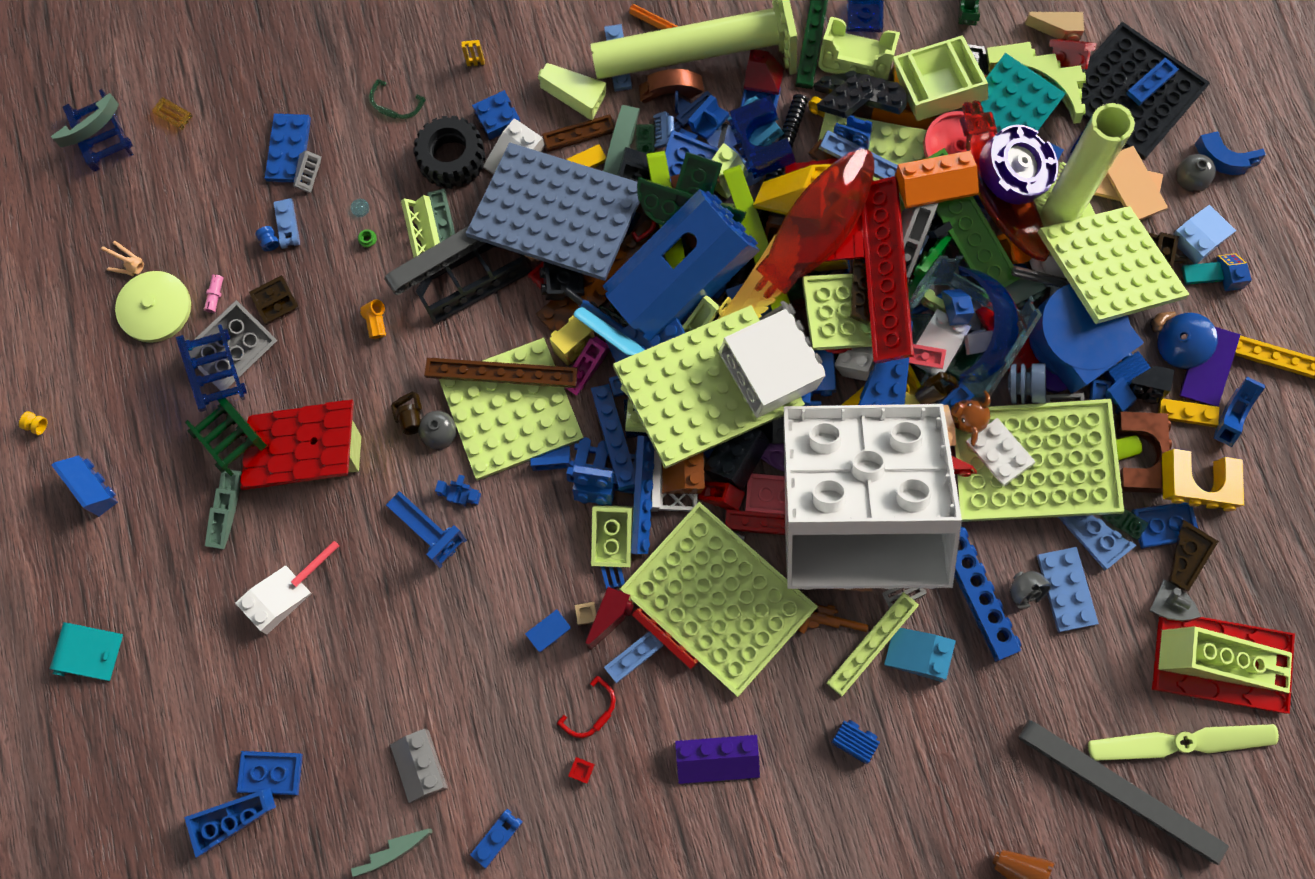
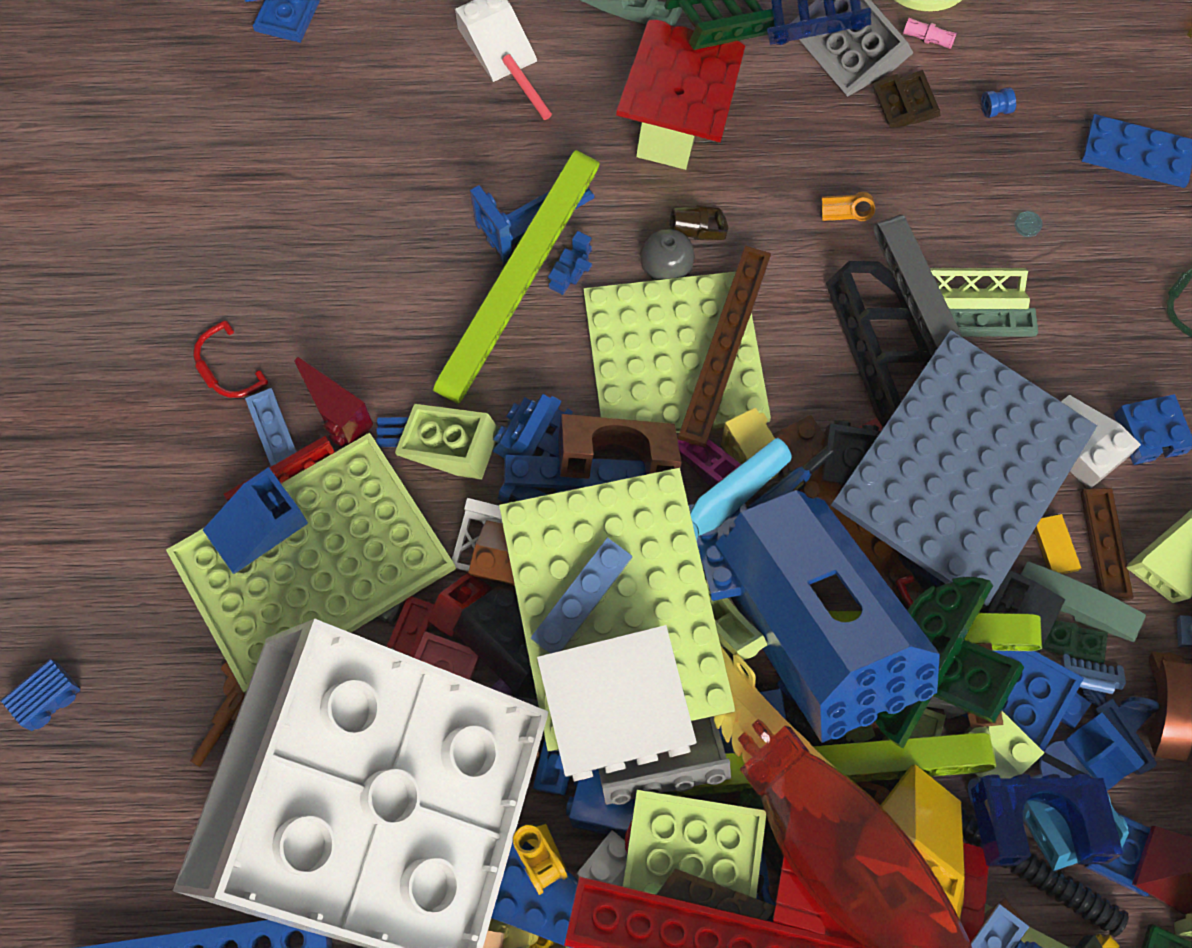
camera: 100 degrees right, 5 degrees down
(286, 223) = (1018, 131): medium blue plate -> none
(312, 161) = (1116, 172): light grey slope -> none
(363, 235) = (980, 217): bright green plate -> none
(398, 848) = (144, 108): sand green slope -> none
(418, 765) = (233, 157): light grey slope -> none
(442, 132) = (1117, 323): black tyre -> none
(478, 522) = (516, 277): none -> lime beam
(496, 839) = (113, 221): blue plate -> none
(548, 631) = (342, 329): blue panel -> none
(553, 460) = (583, 389): blue panel -> none
(581, 403) = (583, 435): none -> copper arch
(581, 770) = (152, 333): red plate -> none
(585, 613) = (354, 381): tan plate -> none
(642, 496) = (472, 483): blue plate -> none
(707, 637) = (254, 521): none -> blue slope
(711, 401) = (581, 597): none -> medium blue plate
(717, 759) = (100, 504): dark purple slope -> none
(870, 388) = (541, 862): none -> yellow piece
(872, 644) = (162, 755): yellowish green tile -> none
(920, 653) = (125, 832): dark azure slope -> none

